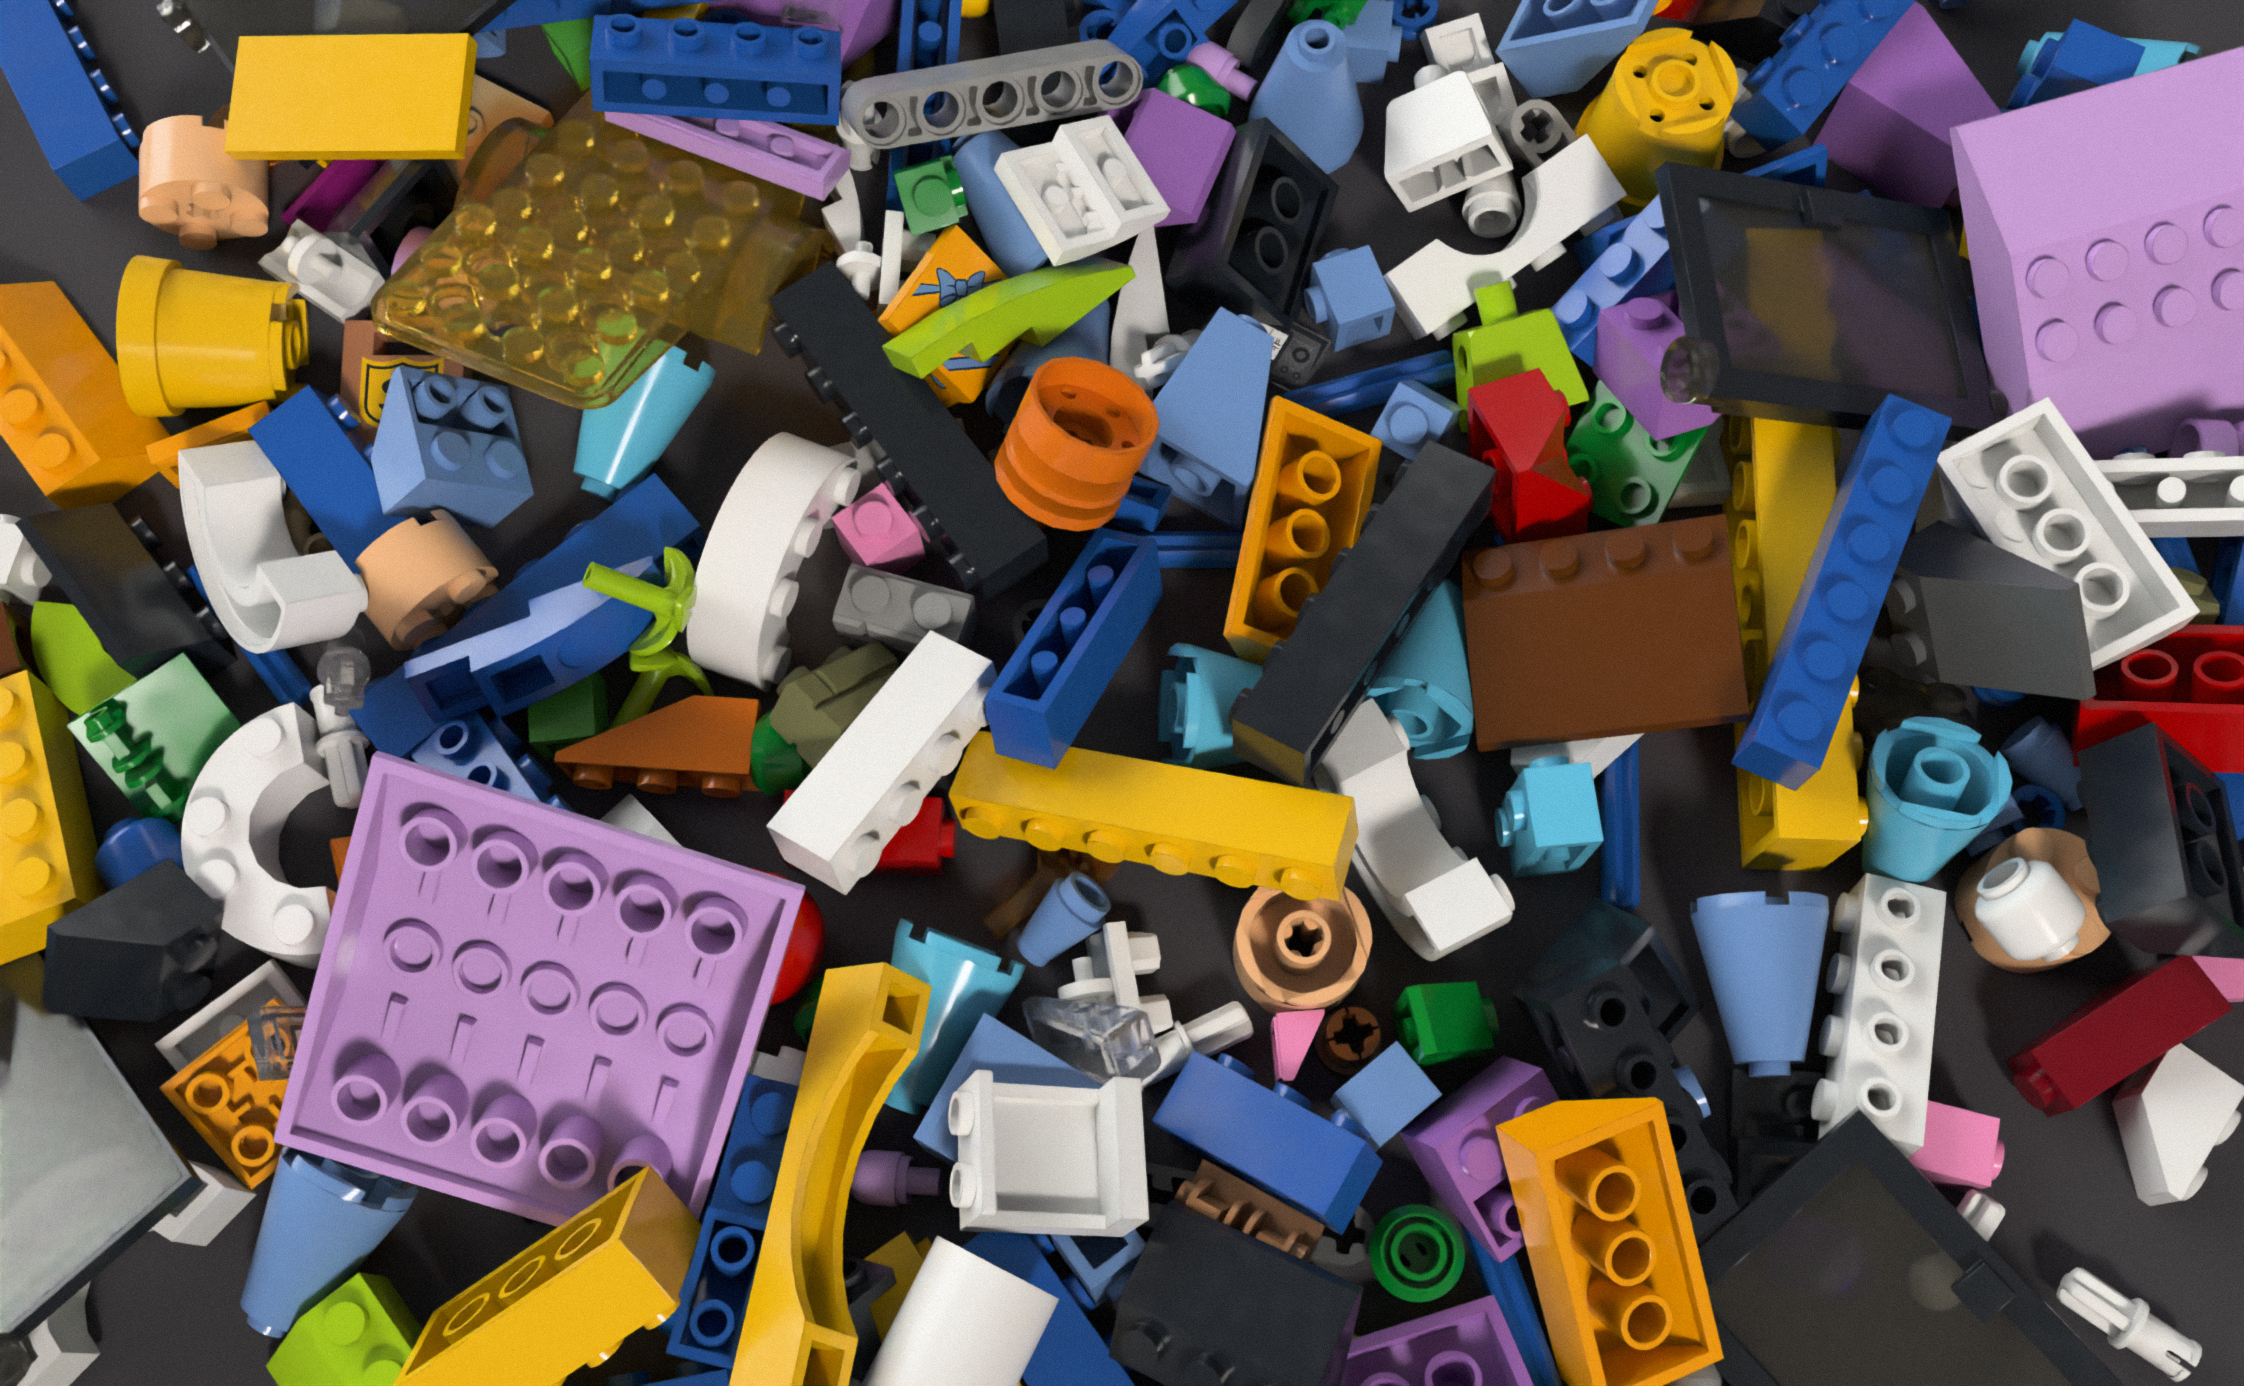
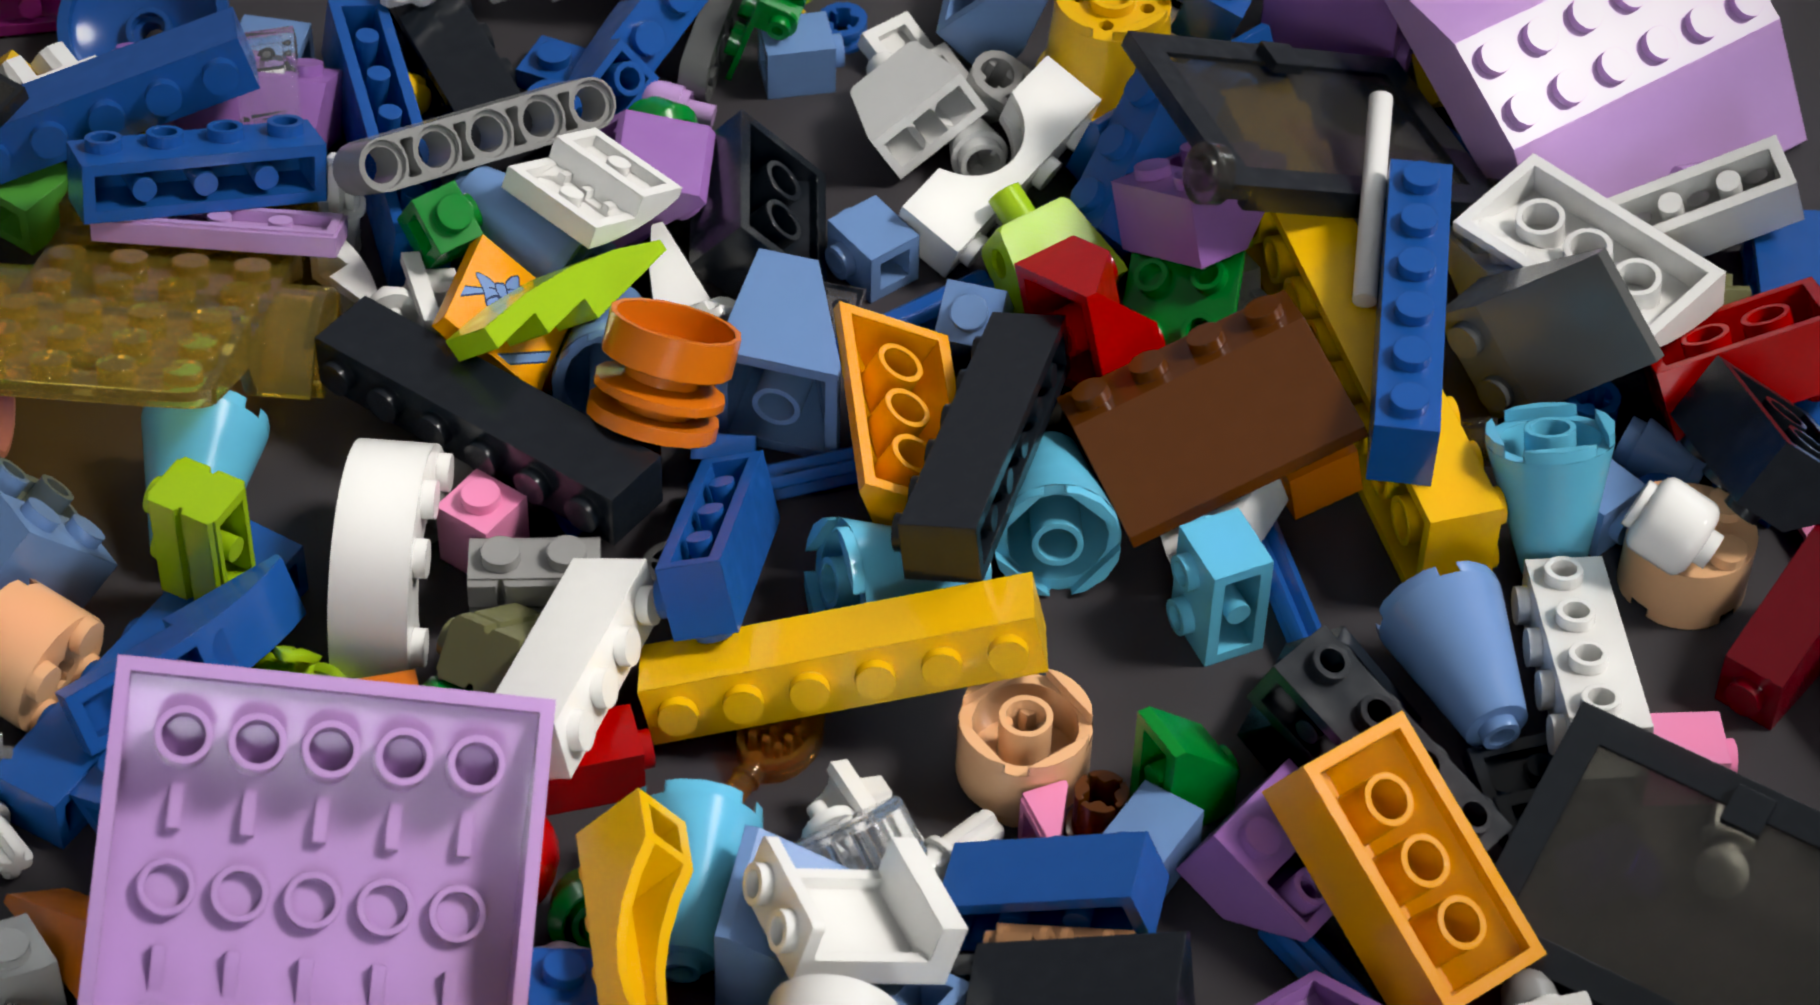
camera: 20 degrees left, 25 degrees down
(586, 511) = (198, 528): none -> lime brick
(669, 604) = (306, 577): lime plant -> none
(1064, 917) = (786, 779): medium blue cone -> none
(1313, 95) = (779, 85): medium blue cone -> none
(1410, 870) = (1112, 660): white brick -> none
(1427, 1274) = (1231, 956): green cone -> none
(1856, 422) = (1372, 199): none -> white bar

